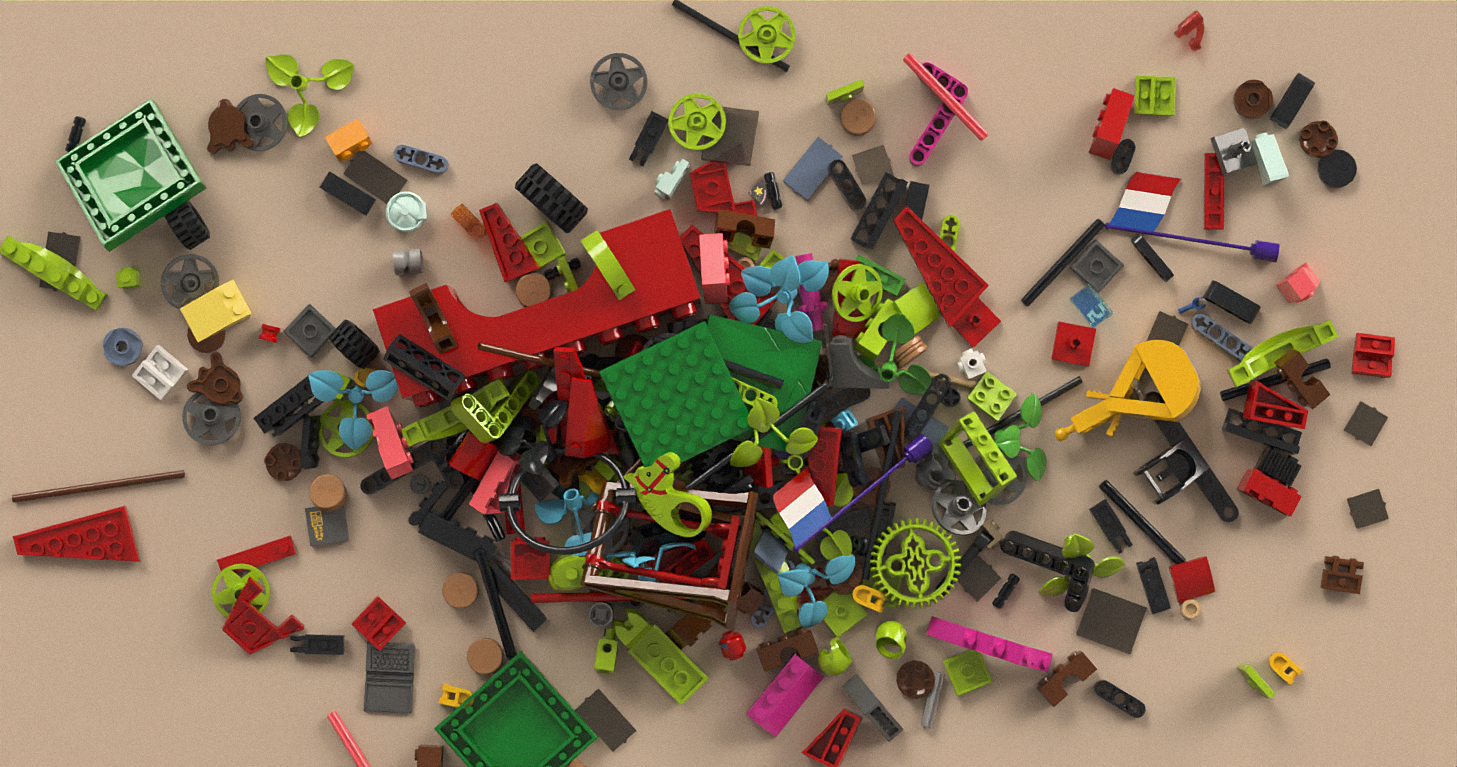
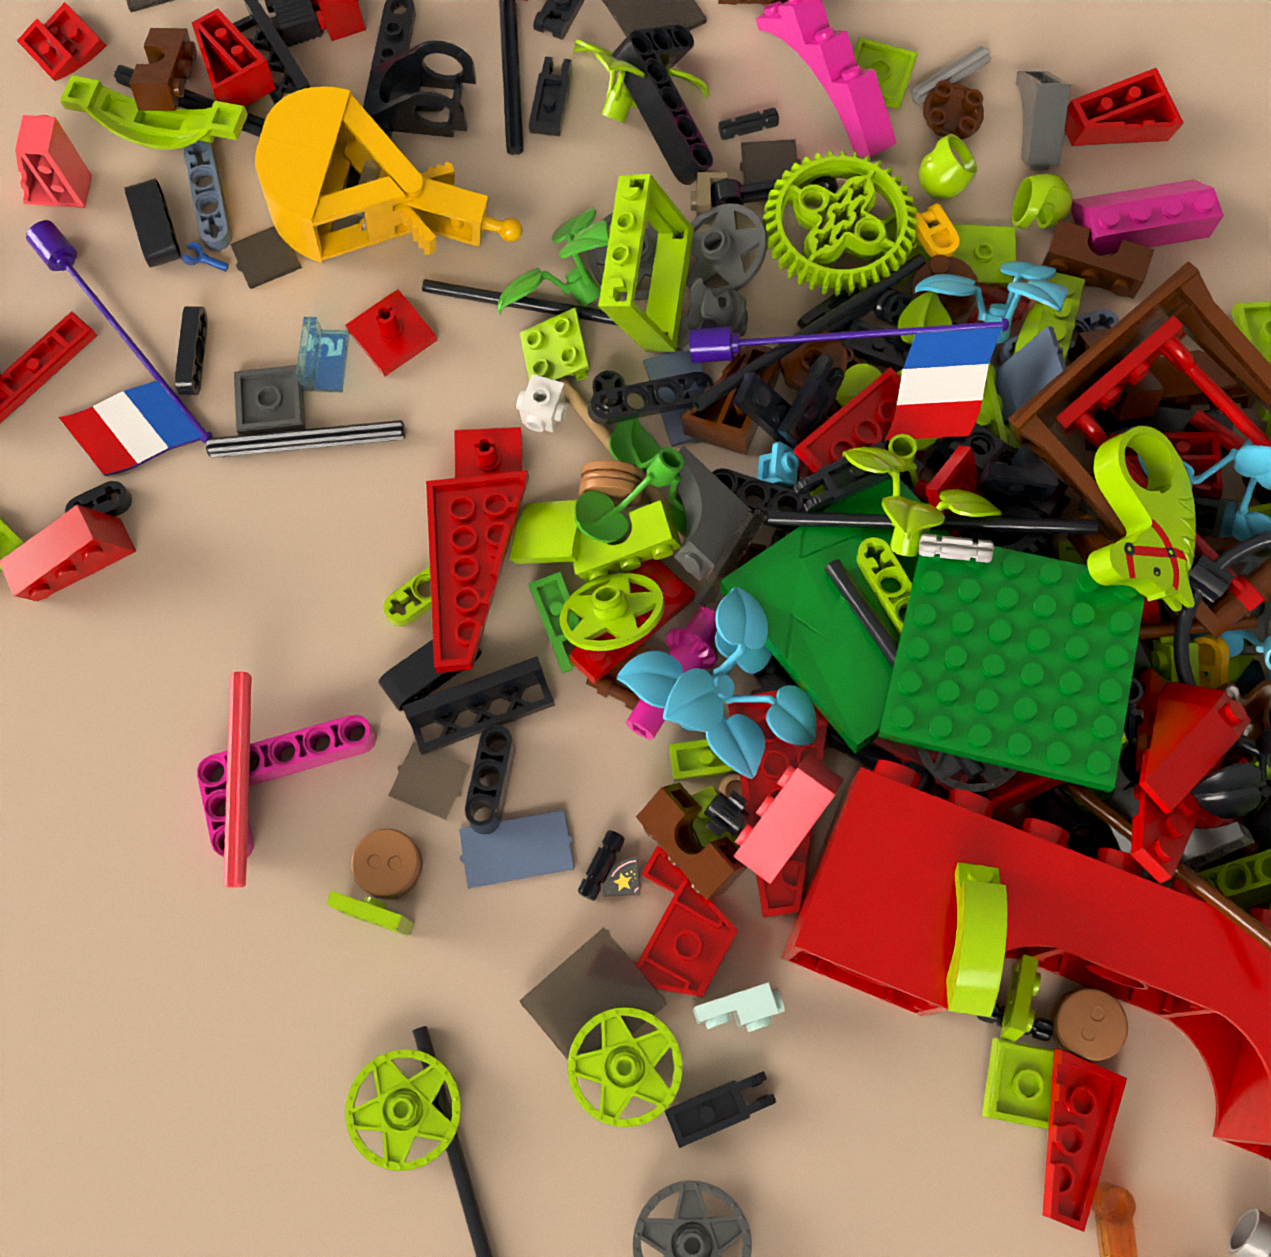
camera: 135 degrees left, 15 degrees down
(551, 198) = (963, 1144): black tyre -> none
(733, 426) = (956, 548): none -> axle
(739, 249) = (726, 813): none -> black gear

